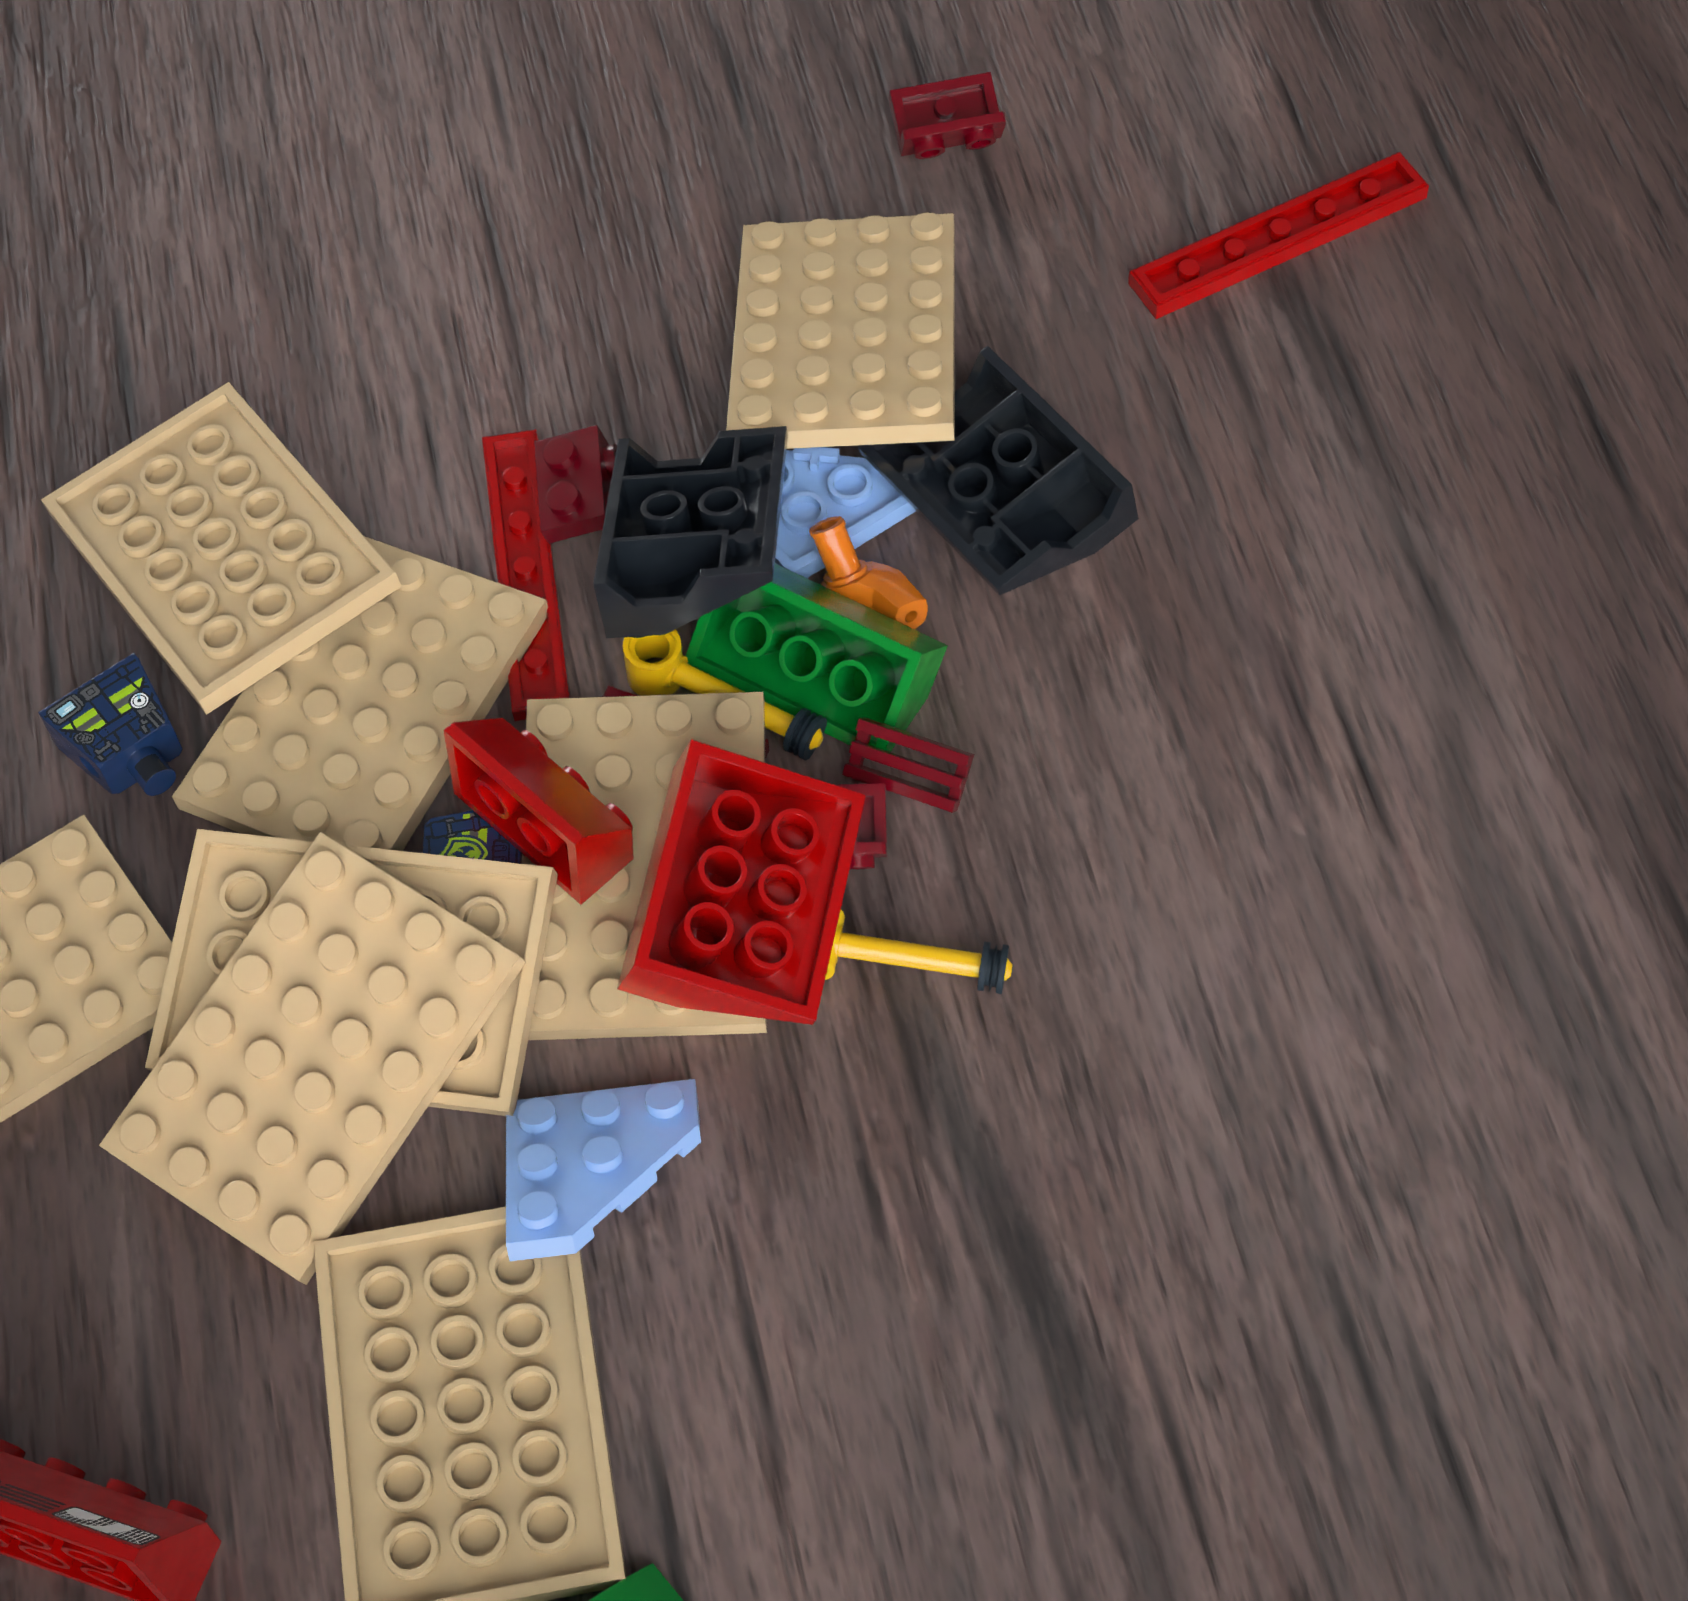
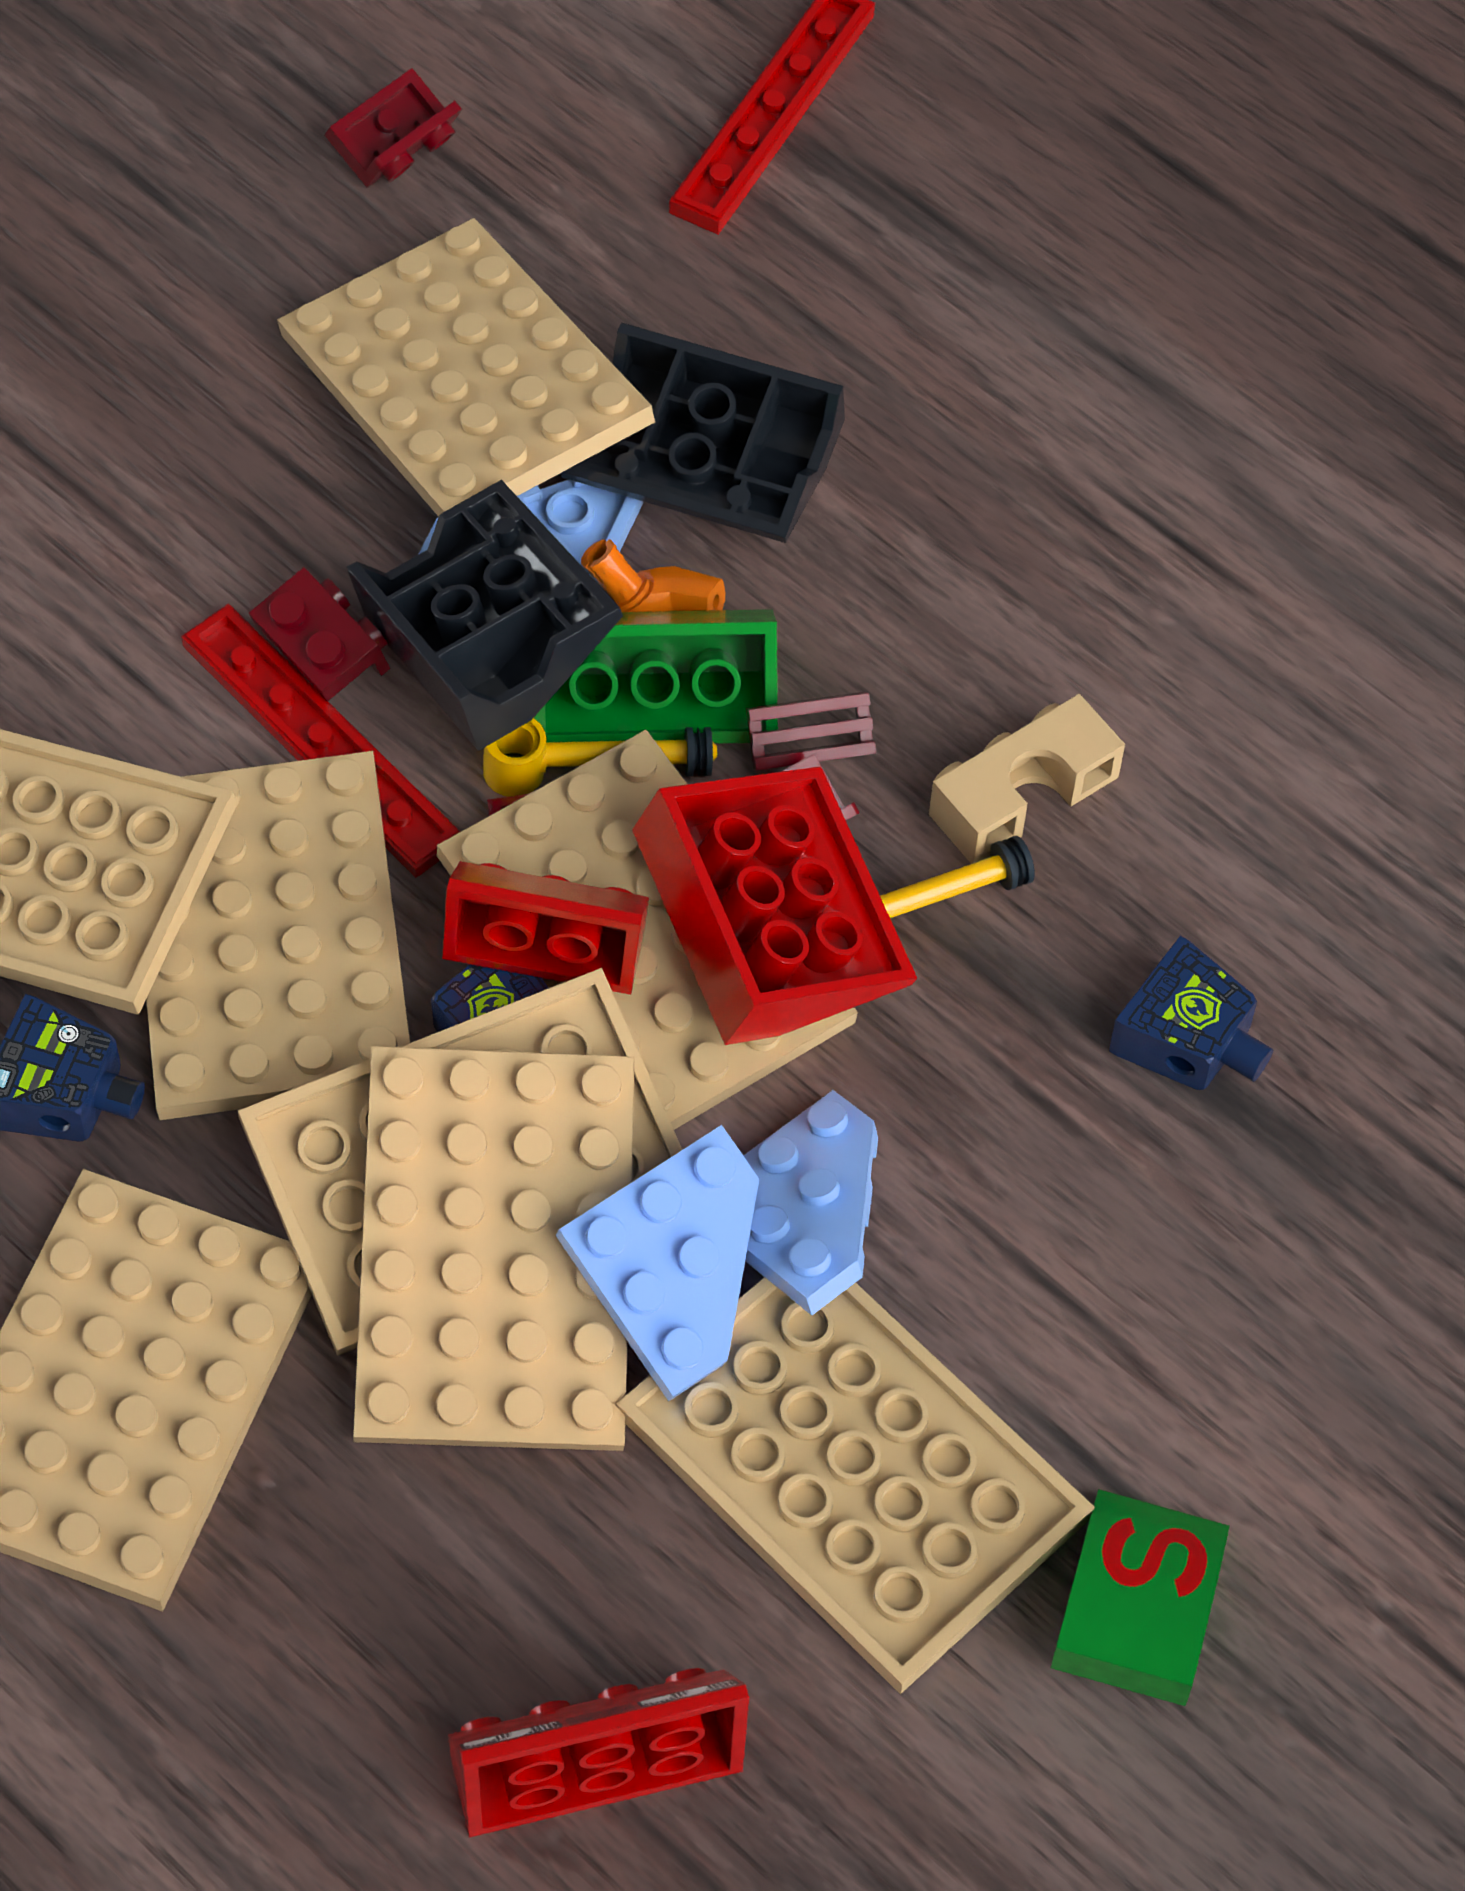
camera: 40 degrees left, 0 degrees up
(430, 1143) = (672, 1258): none -> light blue plate
(1039, 1193) = (1190, 1021): none -> torso
(1105, 887) = (1060, 748): none -> tan arch

